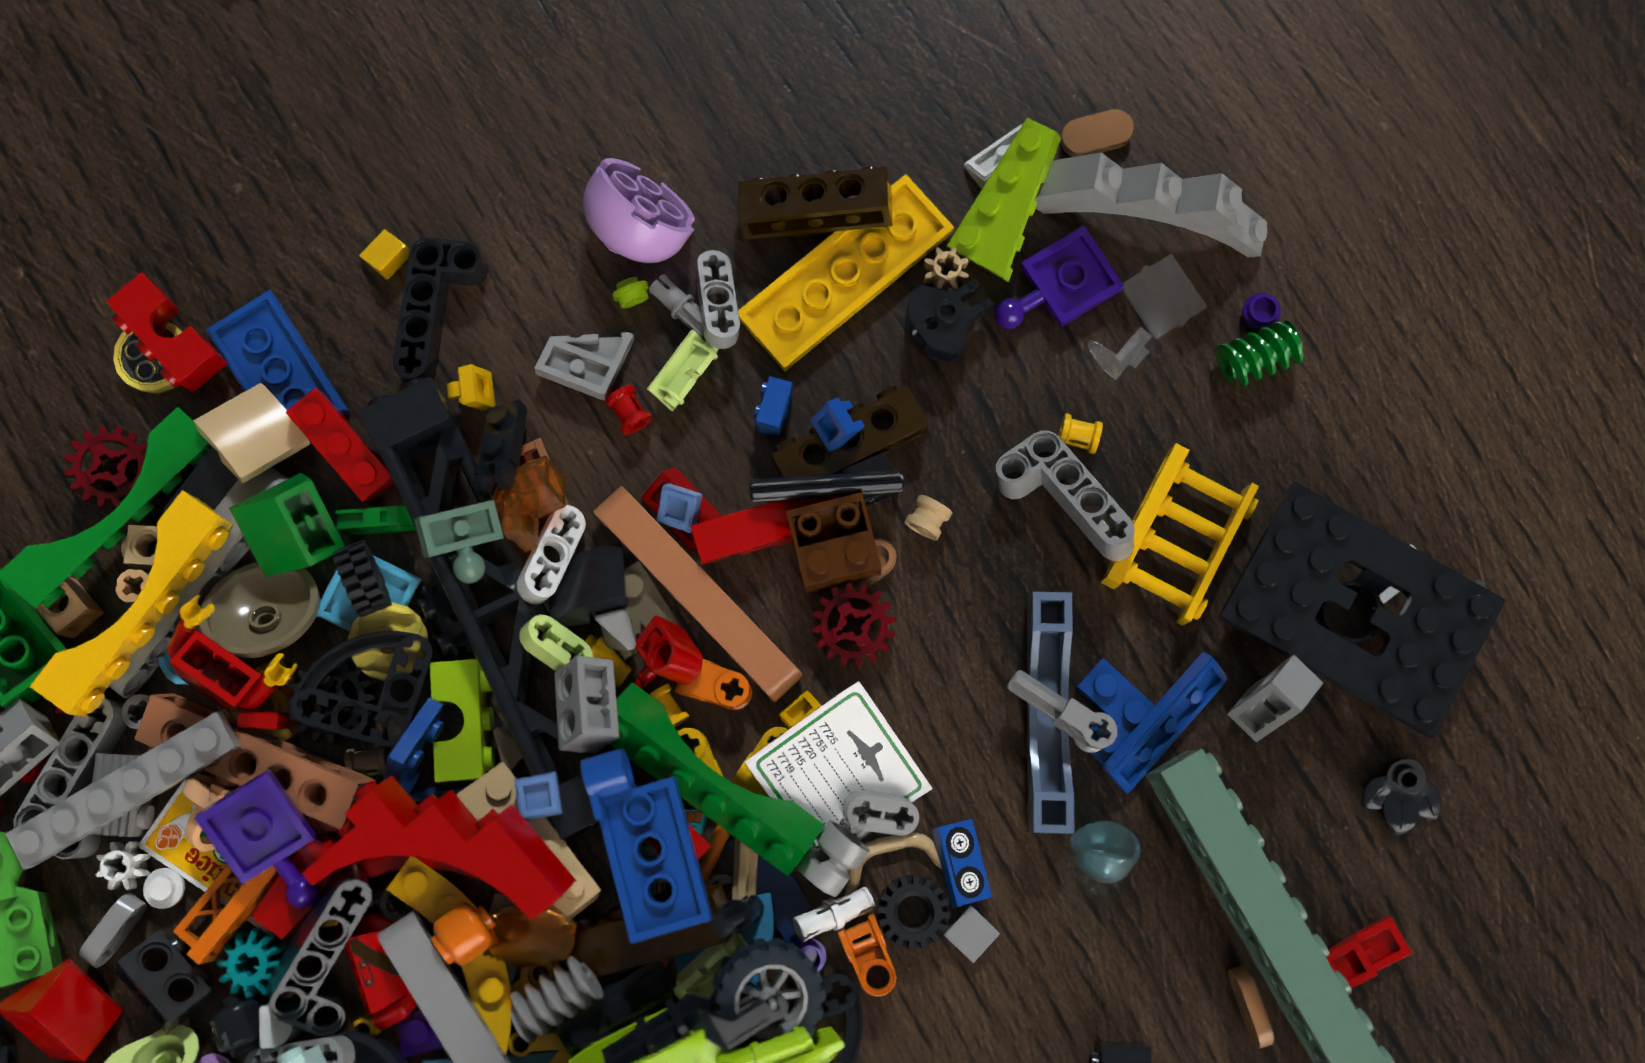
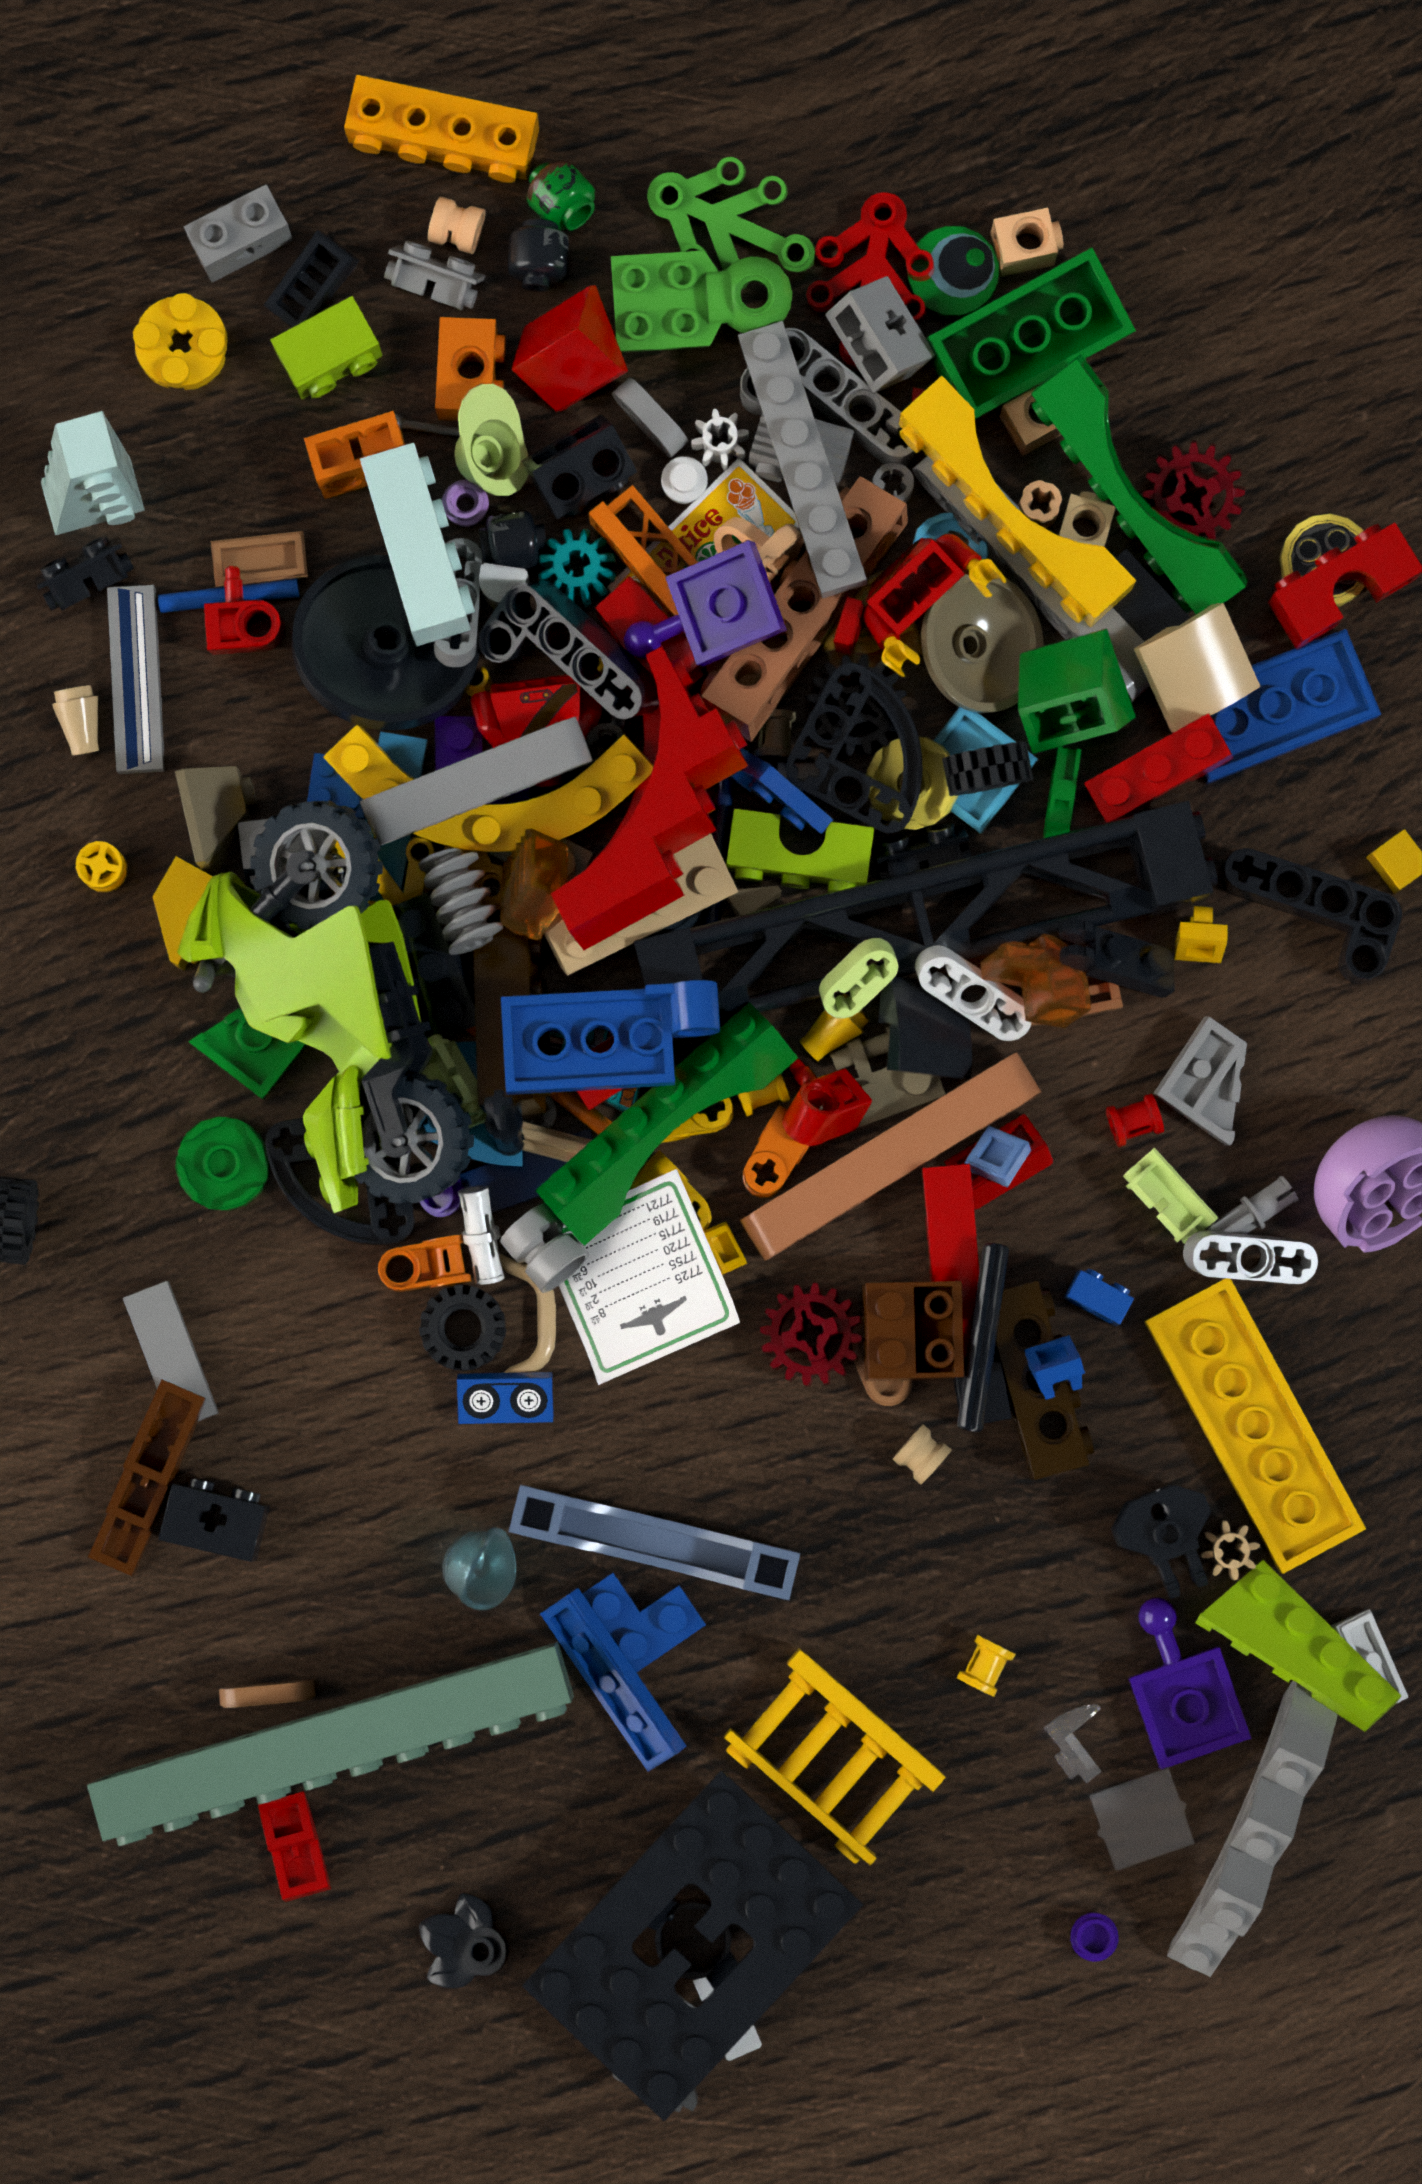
camera: 105 degrees right, 5 degrees up
(459, 531) = (1015, 890): sand green plate -> none
(463, 934) = (554, 812): orange head -> none
(538, 796) = (687, 926): medium blue tile -> none
(586, 704) = (780, 1000): light grey brick -> none
(617, 629) = (864, 1053): light grey slope -> none
(631, 292) = (1283, 1153): lime plate -> none
(831, 213) = (1323, 1470): dark brown brick -> none
(880, 822) = (574, 1311): light grey beam -> none
(971, 933) = (422, 1390): light grey tile -> none
(1067, 715) = (649, 1556): light grey connector -> none
(1072, 498) = (905, 1635): light grey beam -> none
(1097, 133) = (1374, 1789): medium nougat tile -> none
(1259, 352) = (1038, 1917): green piece -> none
(1275, 698) = (610, 1813): light grey brick -> none

